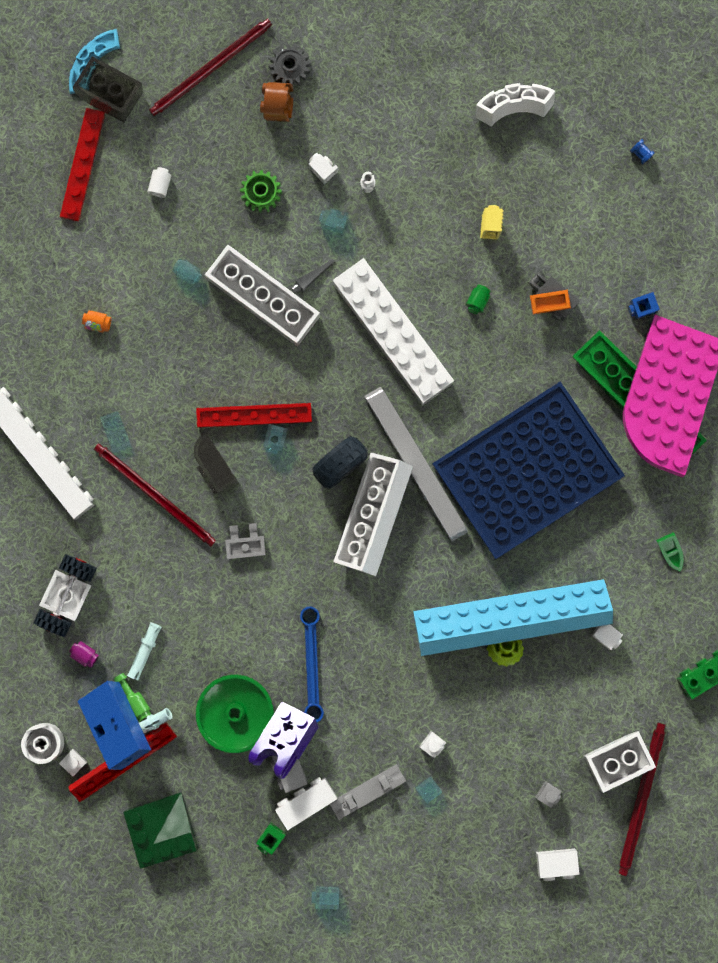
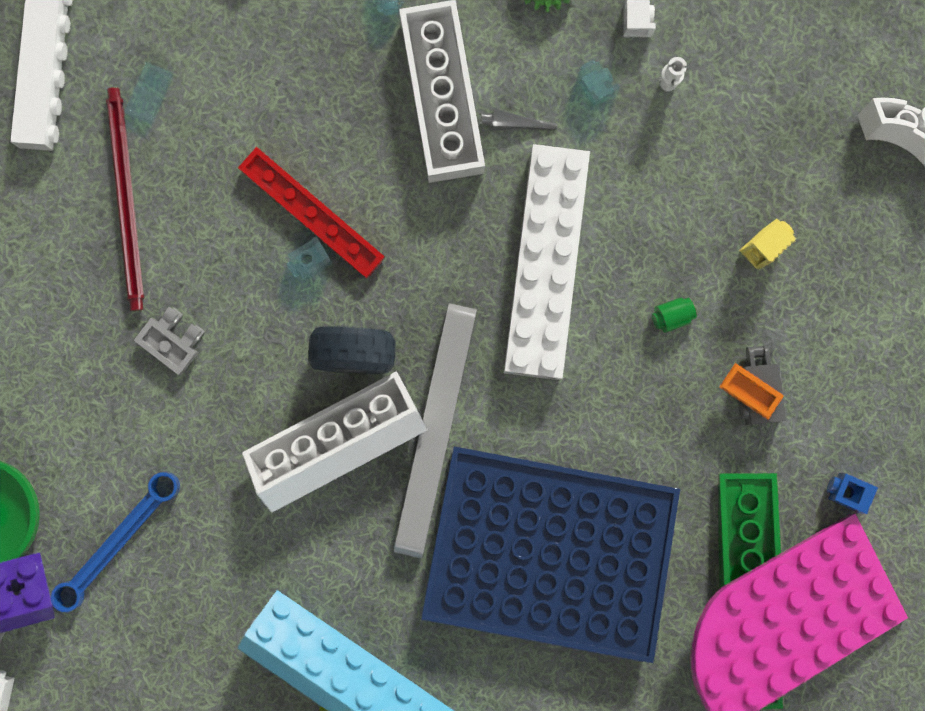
camera: 45 degrees right, 0 degrees up
(213, 466) = (213, 225): clear smoke brick -> none

